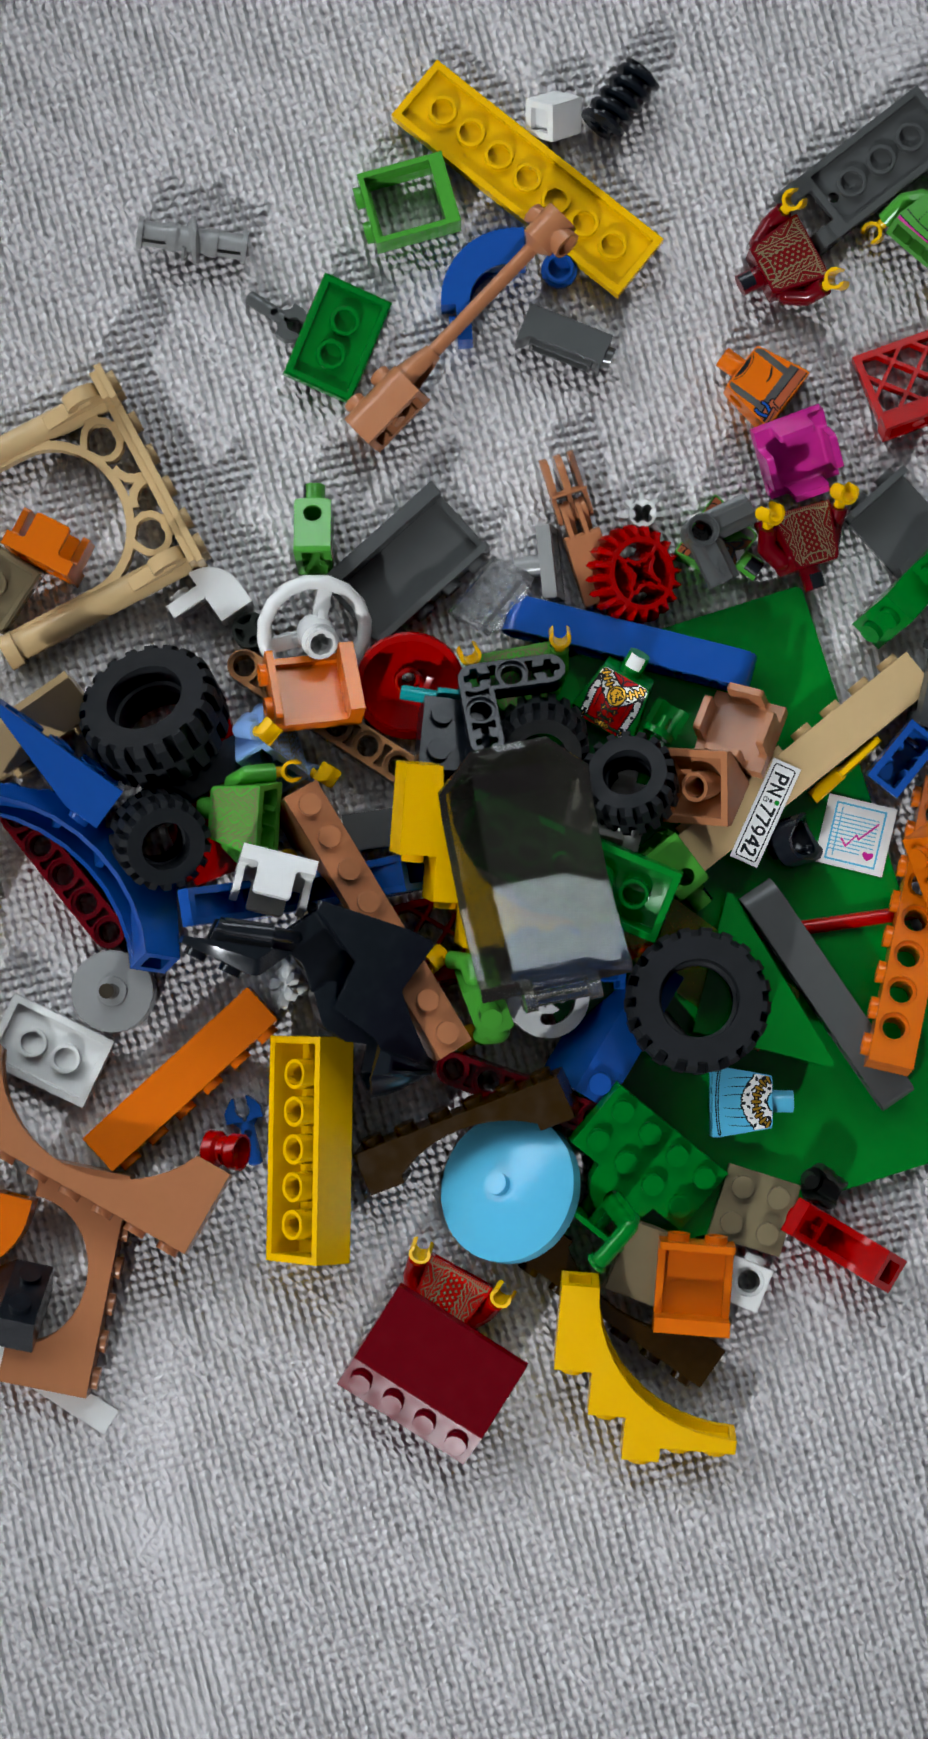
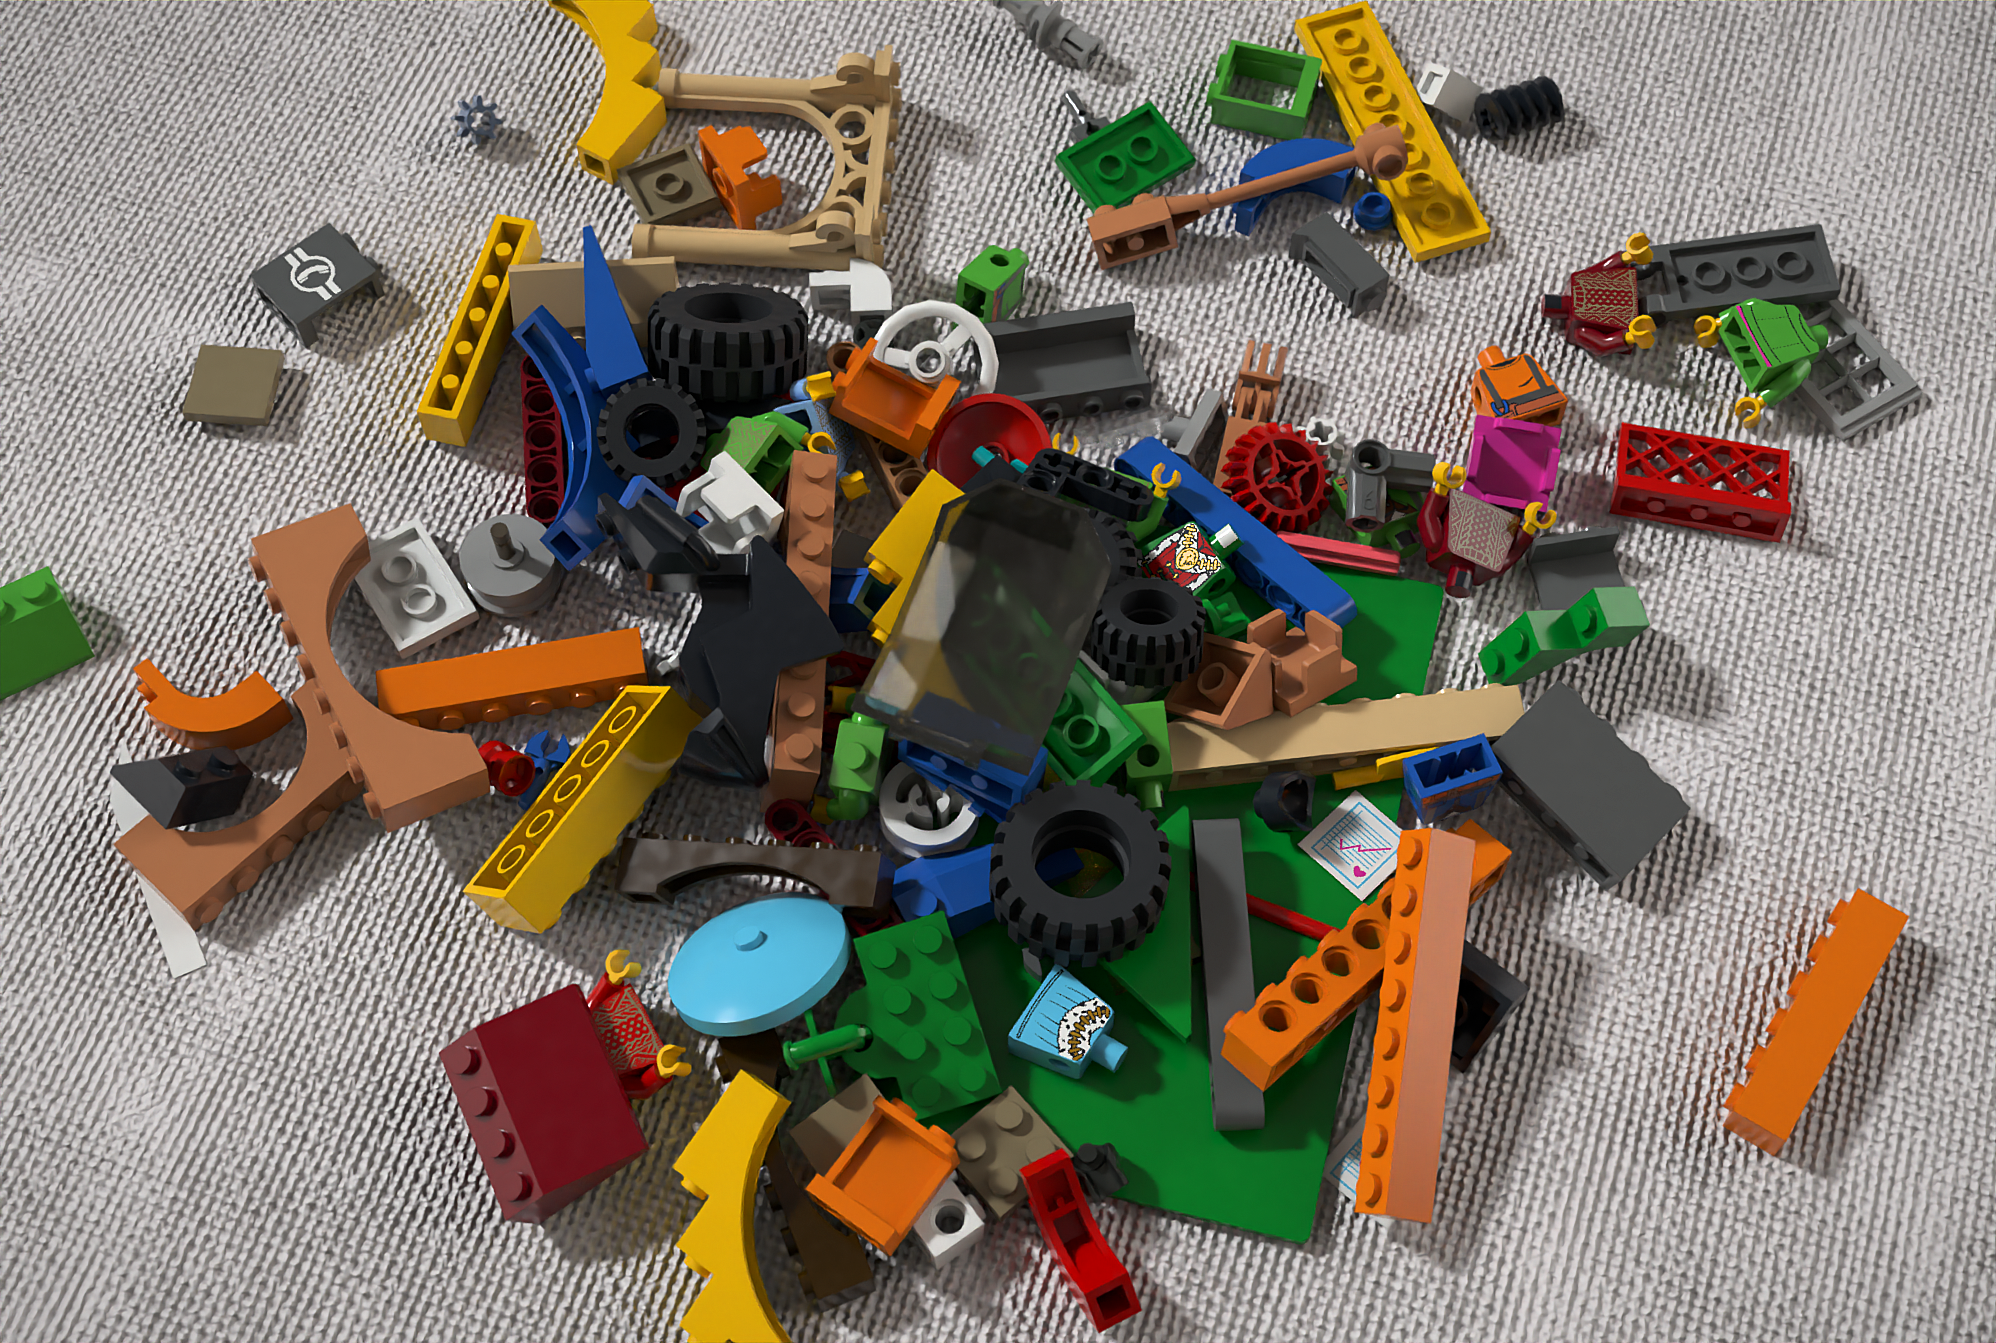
camera: 30 degrees right, 25 degrees down
(710, 606) = (1343, 553): none -> coral axle
(765, 812) = (1272, 751): white sticker -> none

